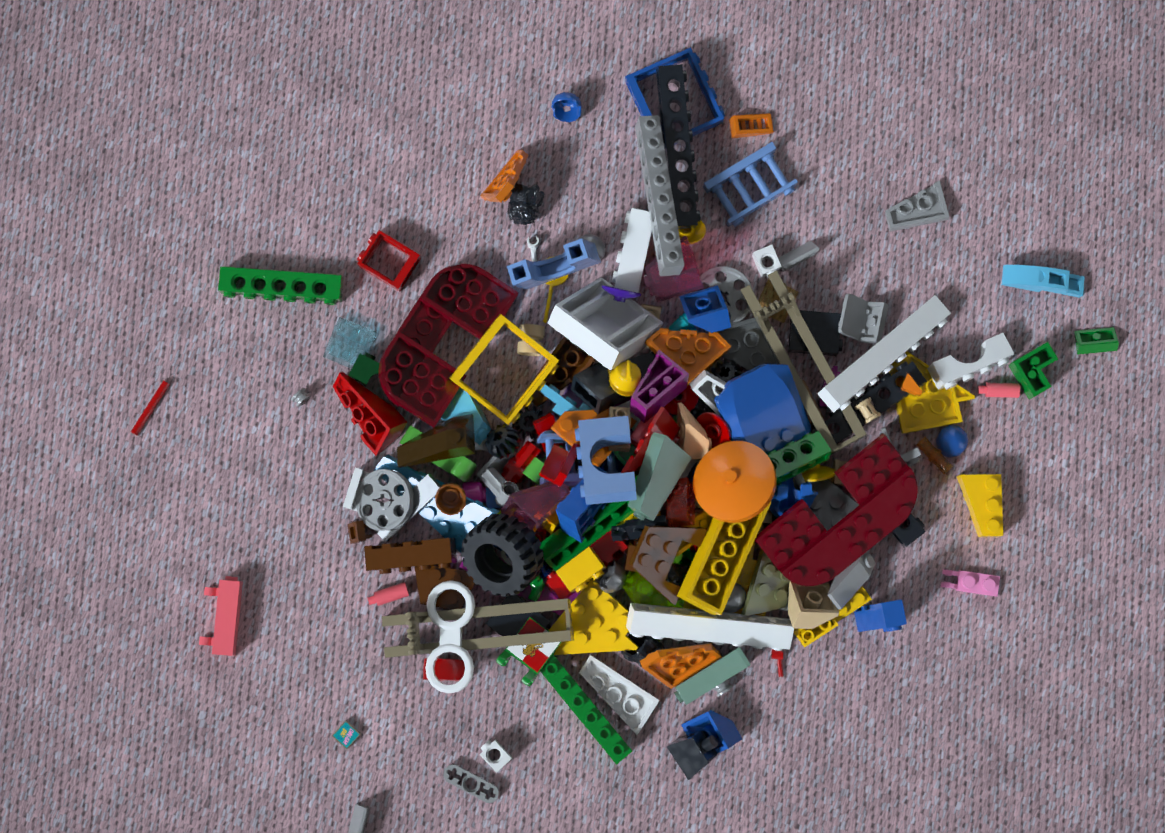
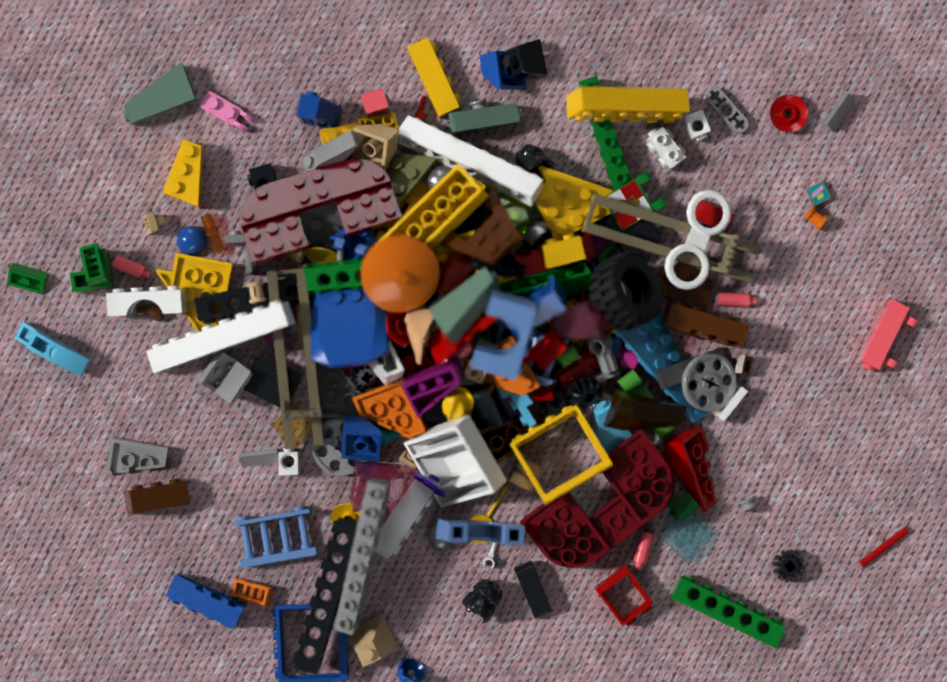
camera: 155 degrees left, 5 degrees up
(230, 349) = (793, 560): none -> black gear
(340, 708) = (815, 217): none -> orange bush
(387, 313) = (643, 549): none -> coral cylinder
(401, 814) = (798, 111): none -> red dish
(450, 499) = (652, 358): dark orange hair -> none
(480, 231) = (533, 589): none -> black beam
(505, 180) = (494, 625): orange plate -> none
(524, 723) = (662, 143): none -> white brick
(574, 745) = (627, 104): none -> yellow brick
(615, 123) = (373, 640): none -> tan slope
(622, 695) = (569, 138): white wing -> none
(678, 664) = (510, 139): orange plate -> none
(779, 698) = (433, 77): none -> yellow brick
(791, 98) = (206, 601): none -> blue wedge
(827, 647) = (375, 103): none -> coral panel
(881, 178) = (156, 496): none -> reddish brown wedge
(910, 386) = (211, 299): orange slope -> none
(963, 356) = (152, 310): none -> reddish brown arm
(998, 441) = (152, 223): none -> tan tile
(1027, 372) = (98, 280): none -> green slope
(1039, 573) = (161, 97): none -> sand green slope

